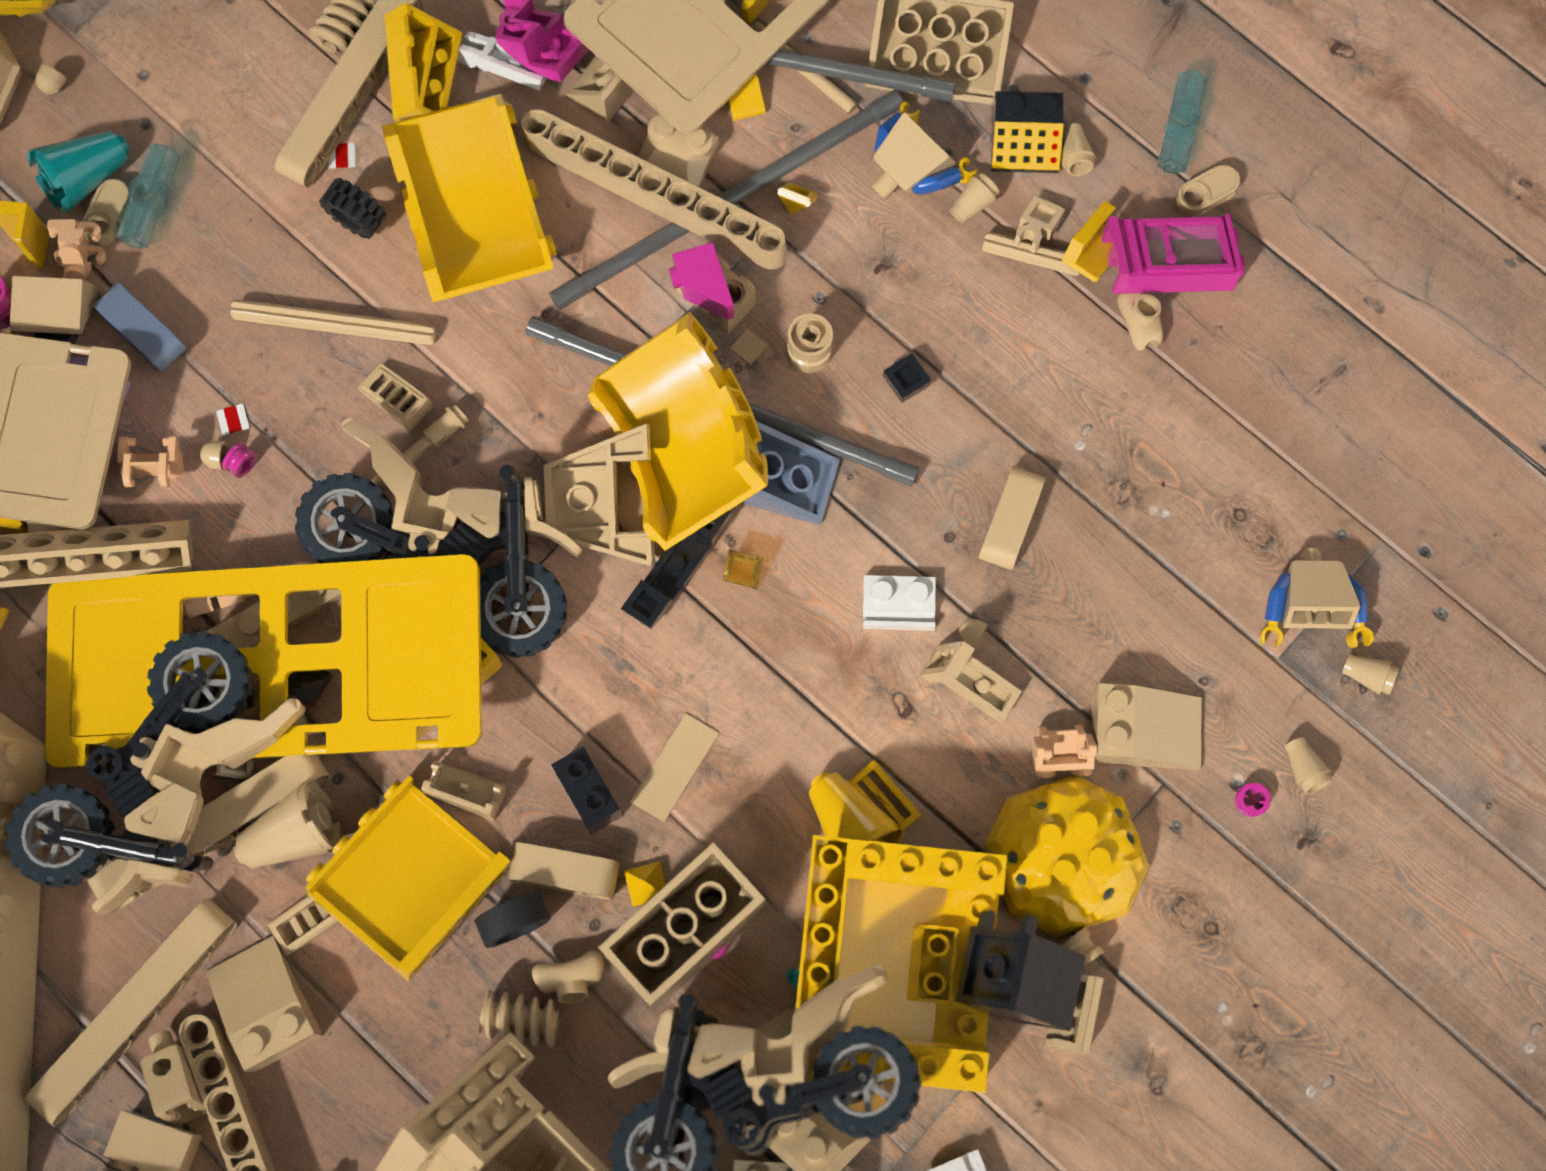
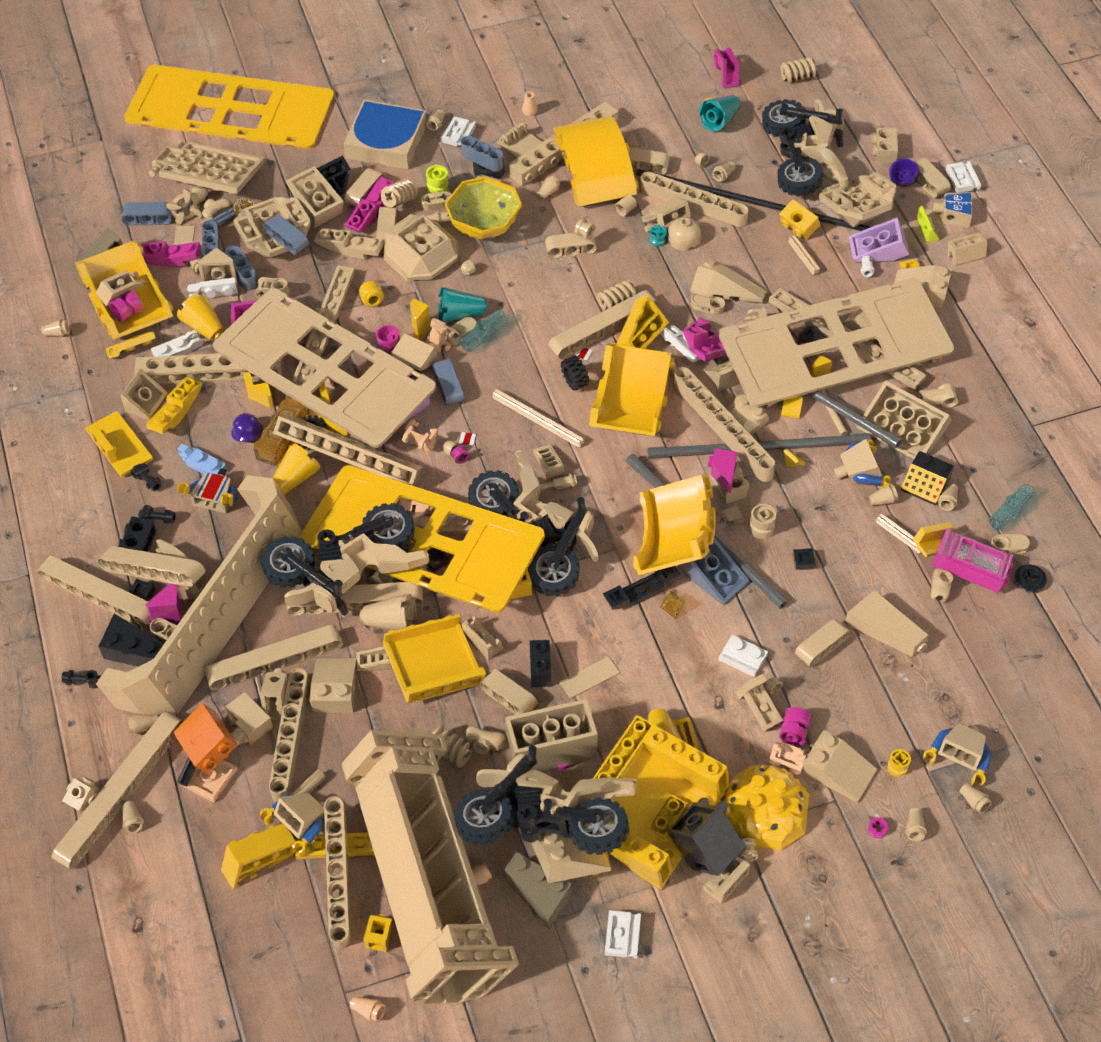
camera: 30 degrees right, 20 degrees down
(512, 919) = (471, 699): black tyre -> none
(584, 496) = (614, 537): tan wing -> none
(1038, 221) = (911, 518): tan plate -> none
(1047, 693) = (795, 726): none -> dark pink wheel
(1096, 434) = (886, 624): none -> tan slope
(1226, 678) = (899, 762): none -> yellow wheel
(1268, 224) = (1035, 573): none -> black gear

